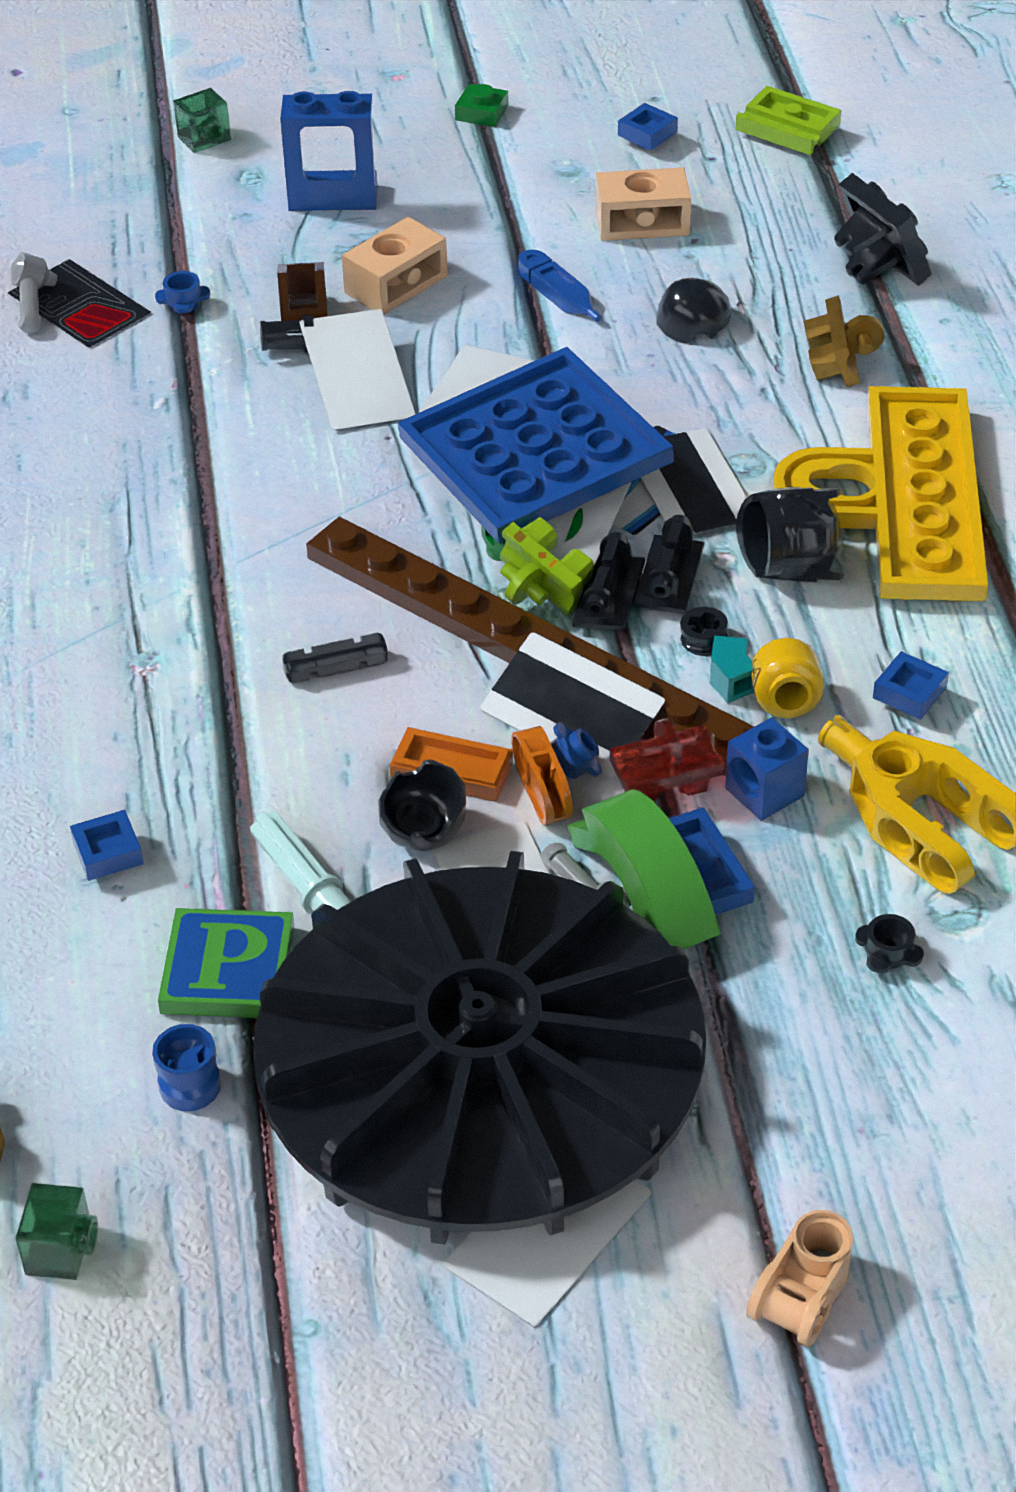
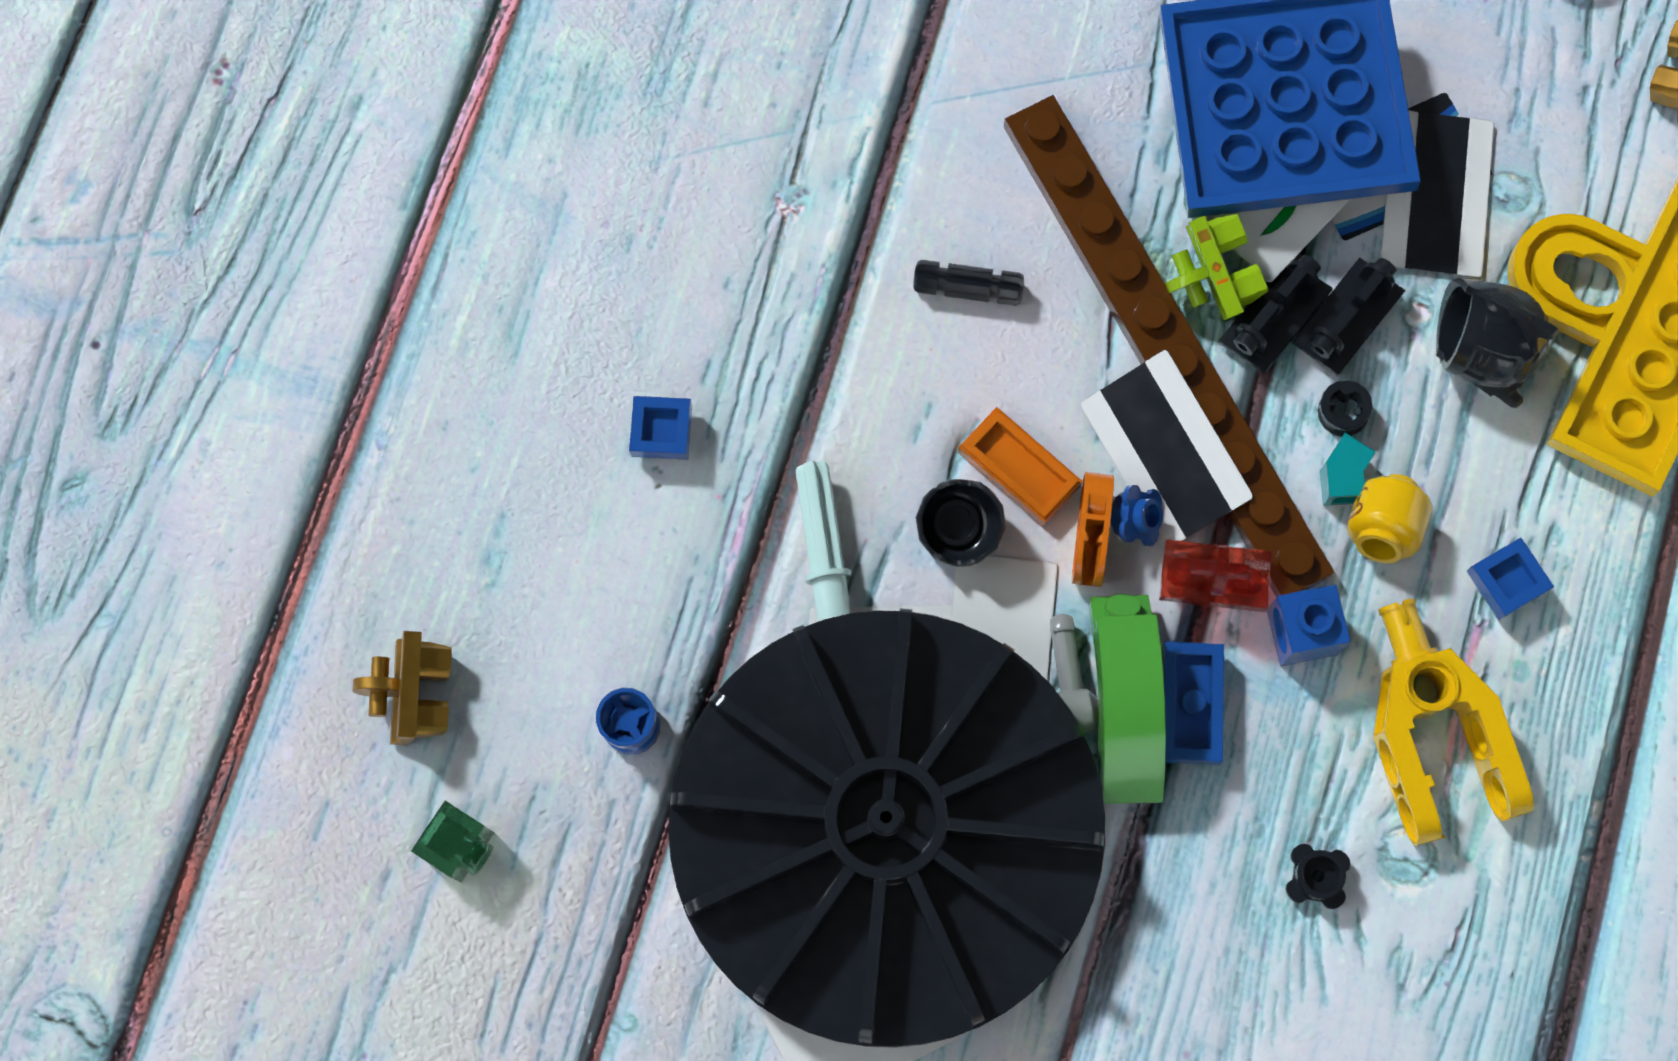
camera: 30 degrees right, 30 degrees up
(222, 960) = (714, 609): tile -> none

